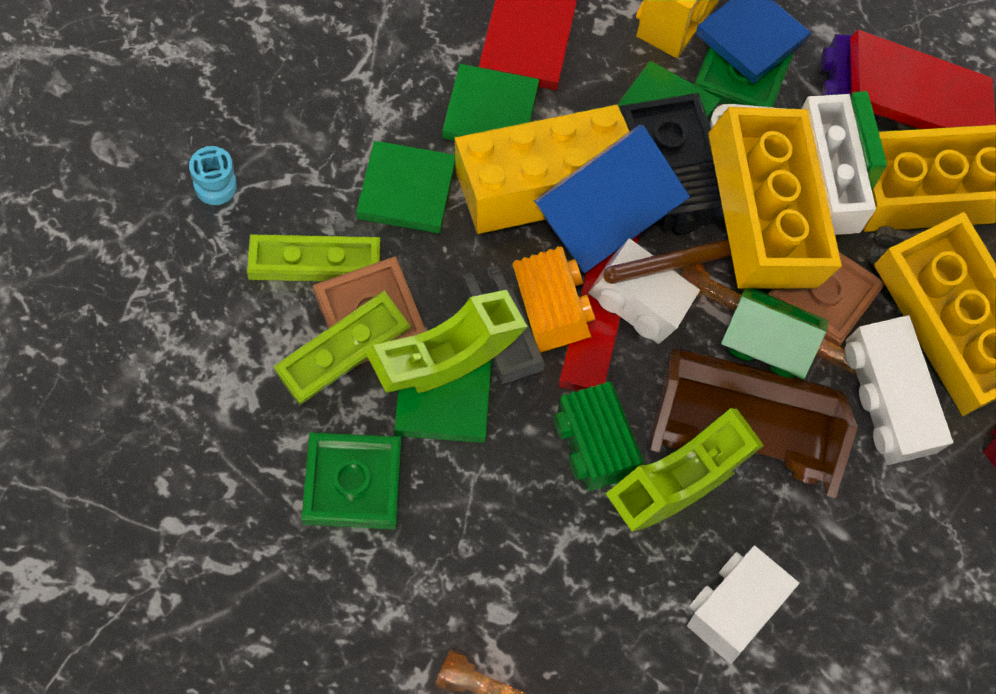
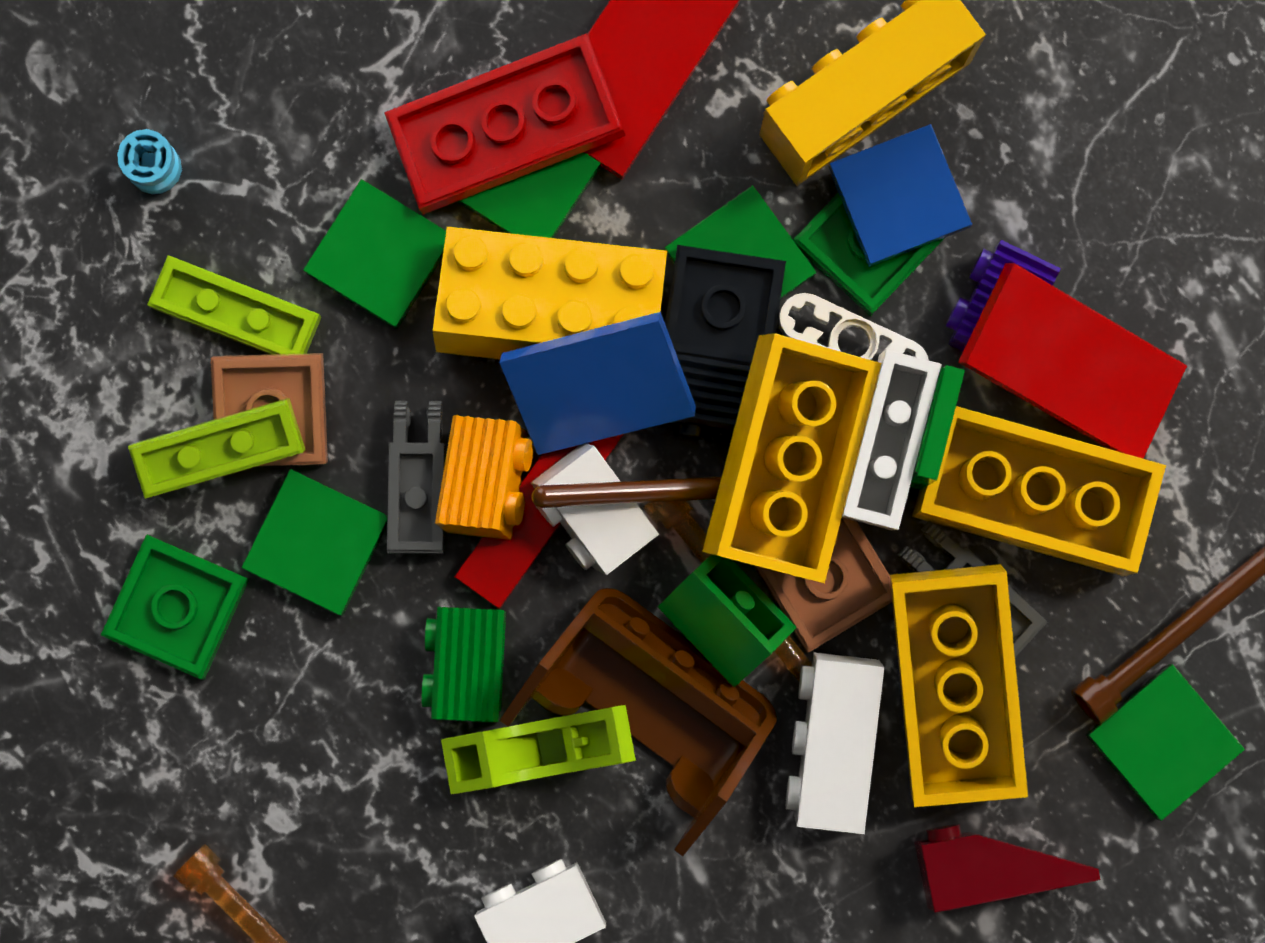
camera: 25 degrees right, 20 degrees up
(453, 348) = (327, 501): lime arch -> none
(462, 73) = (504, 124): none -> red tile

